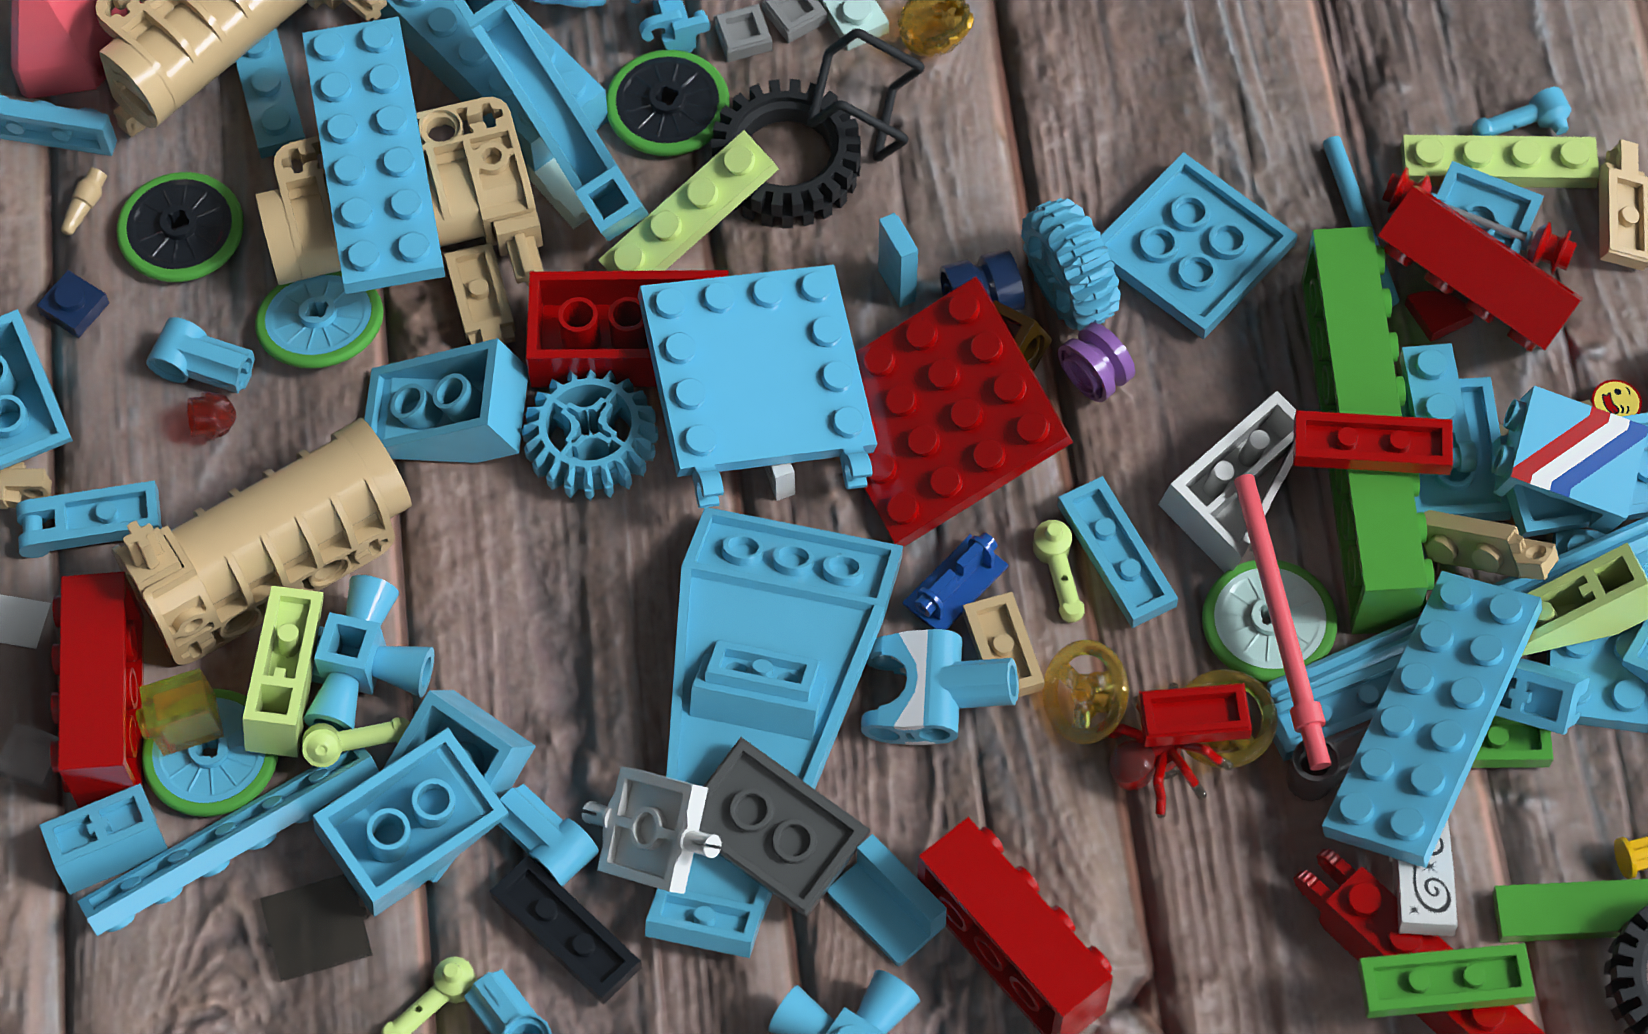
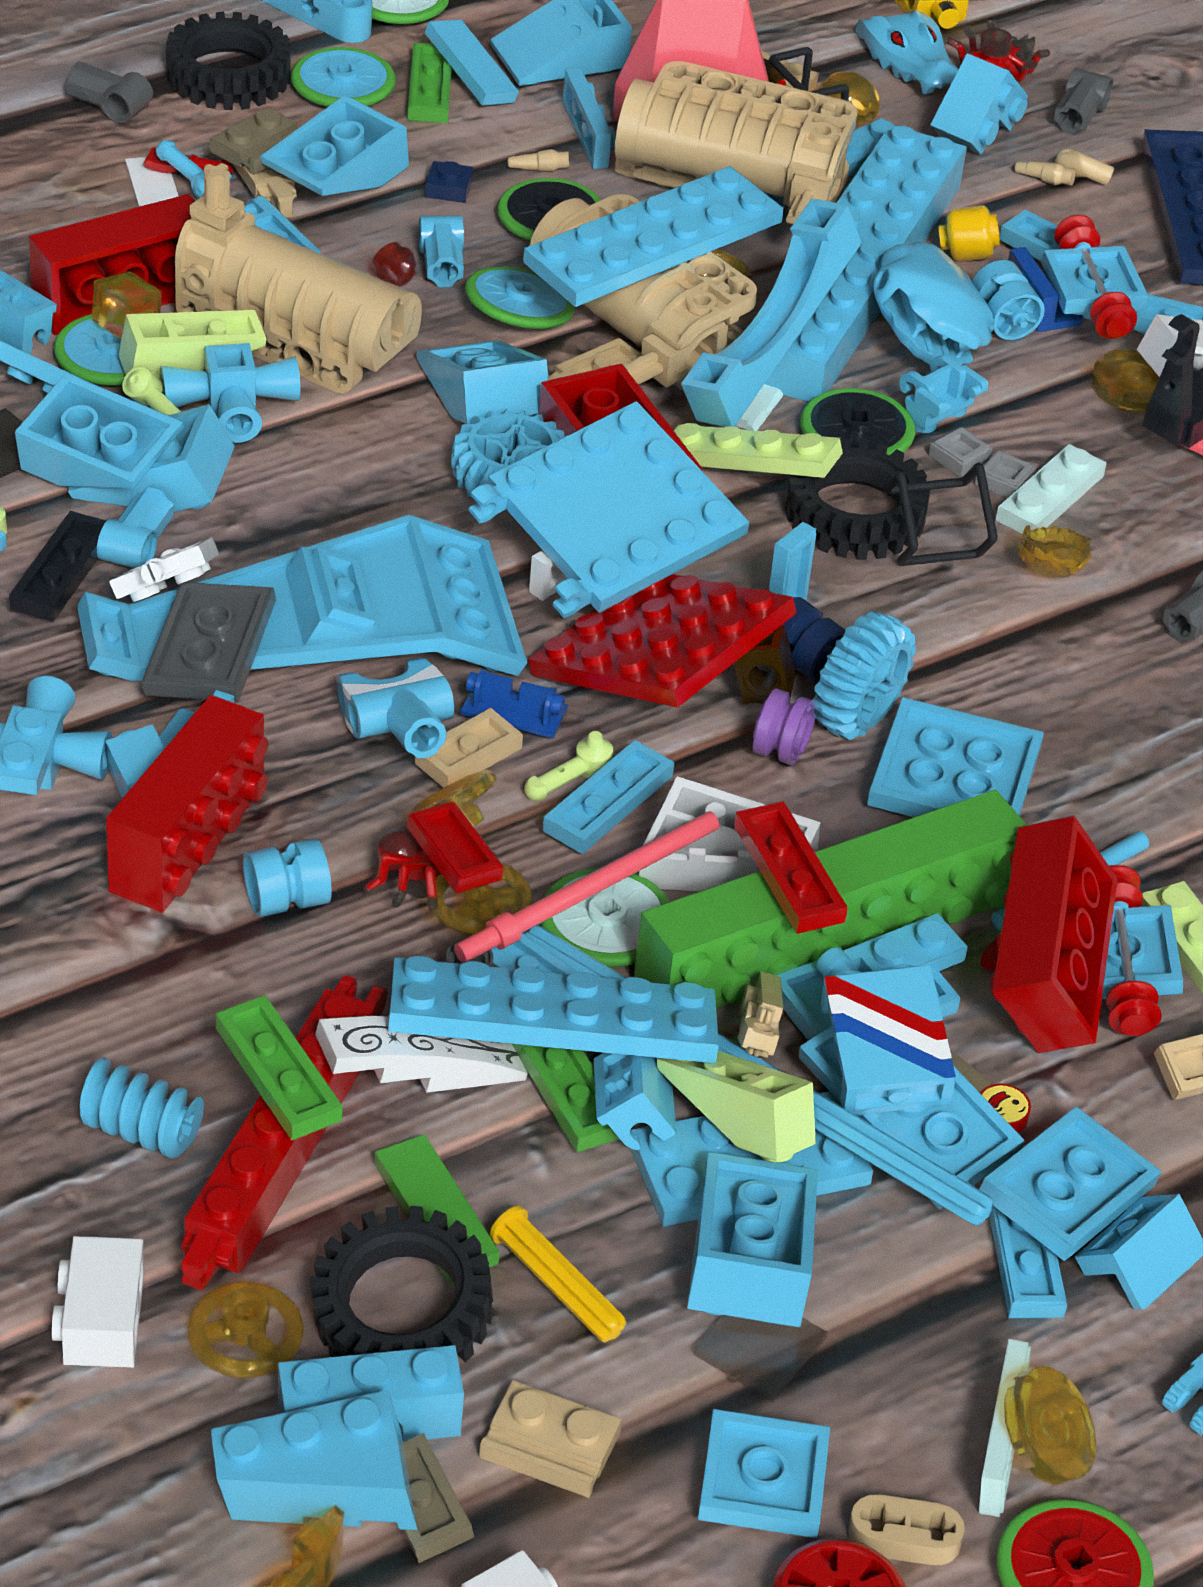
camera: 60 degrees right, 20 degrees down
(927, 958) = (132, 755): none -> medium azure brick
(1133, 877) = (287, 877): none -> medium azure wheel

